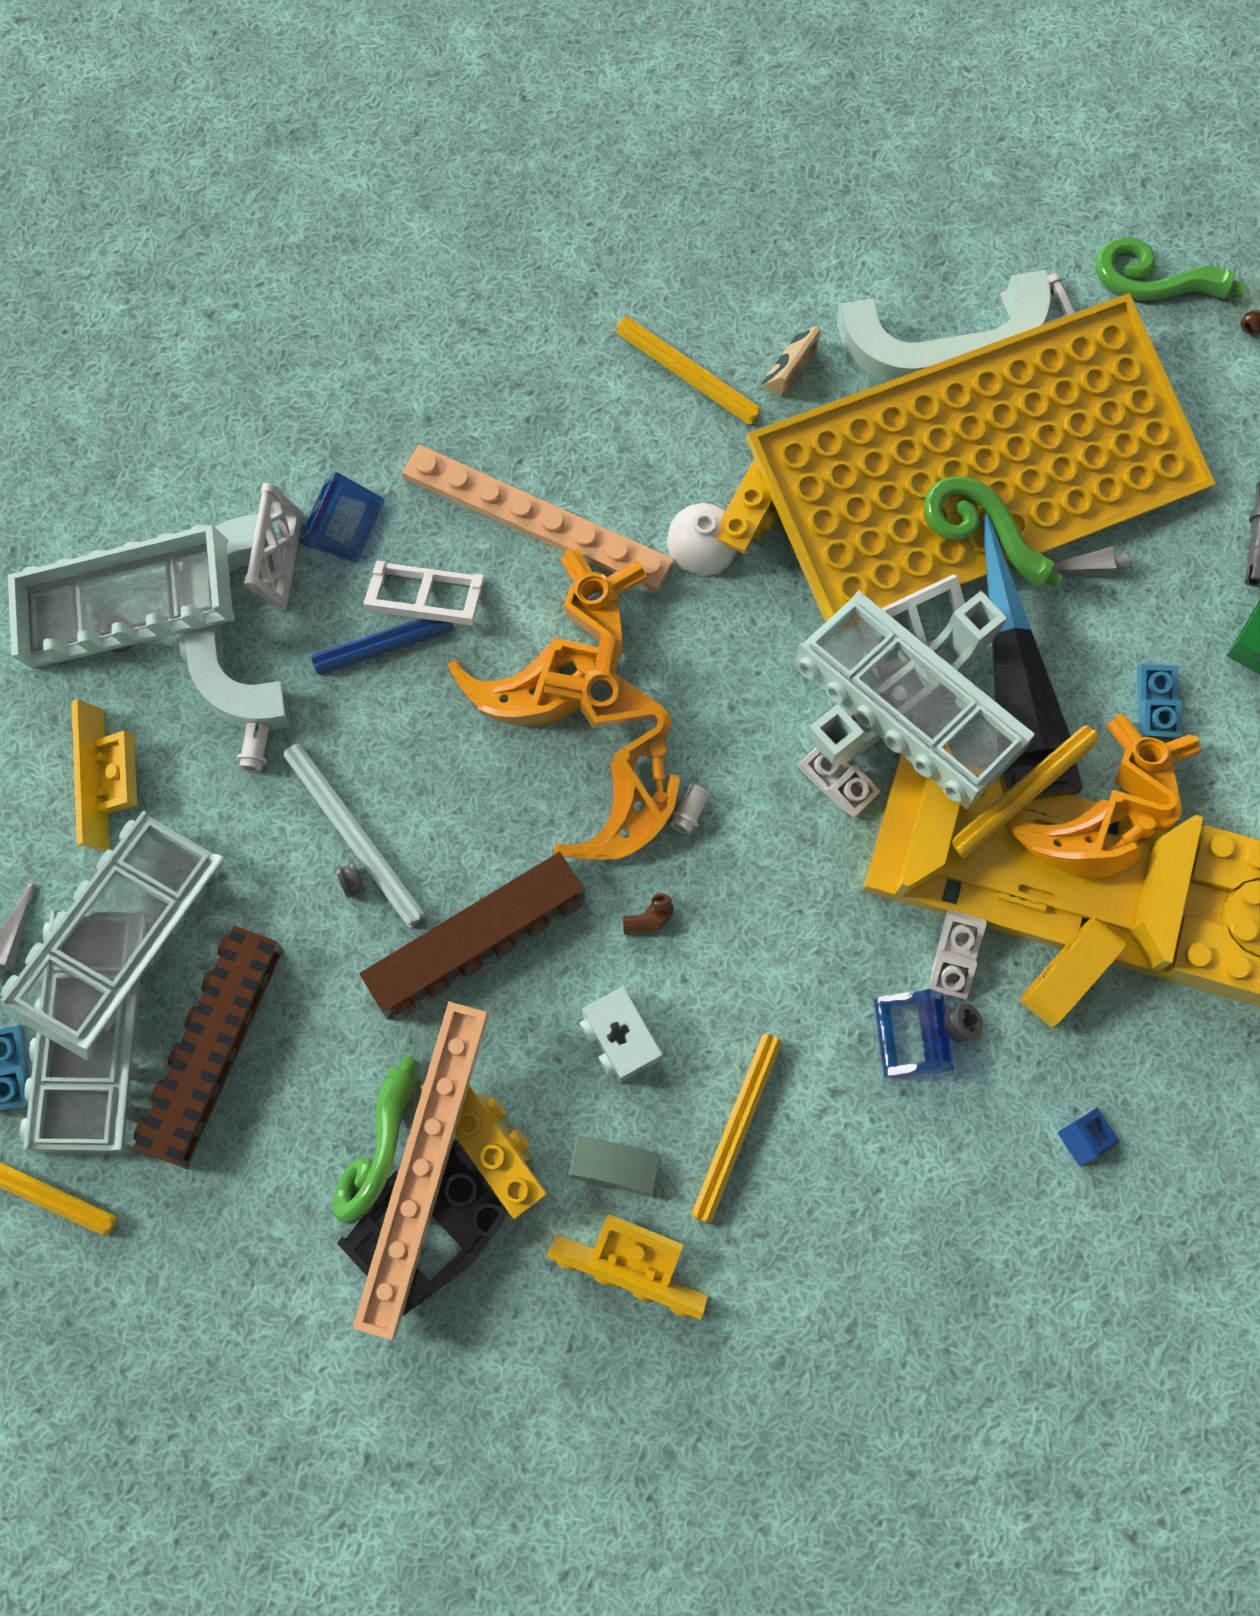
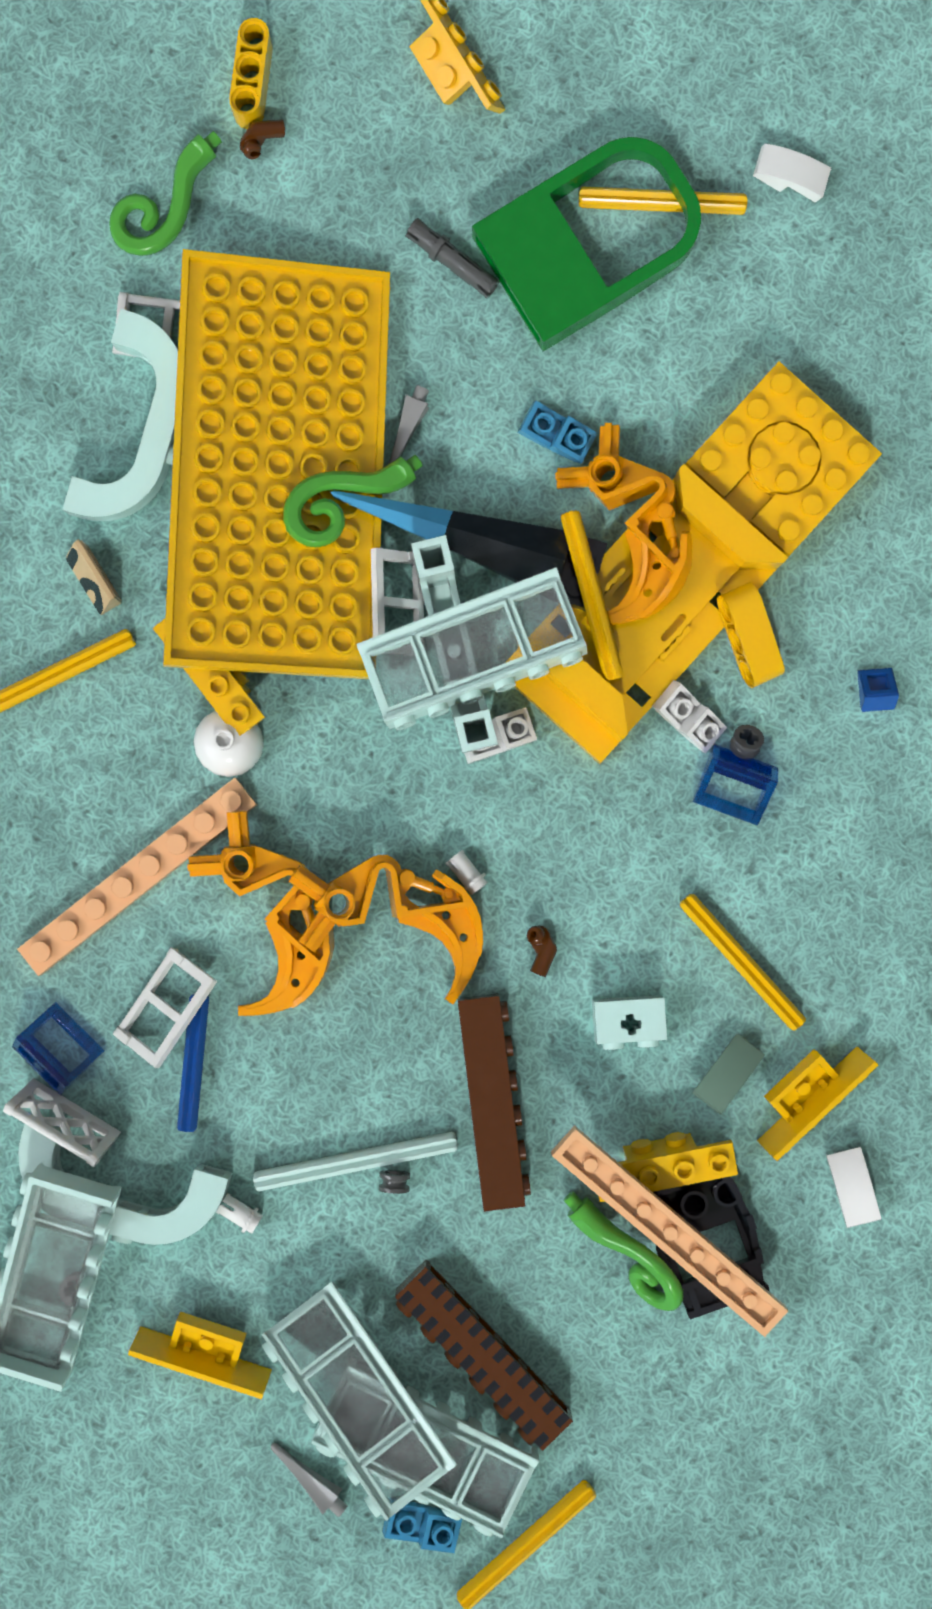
camera: 65 degrees left, 15 degrees up
(555, 1361) = (854, 1187): none -> white slope

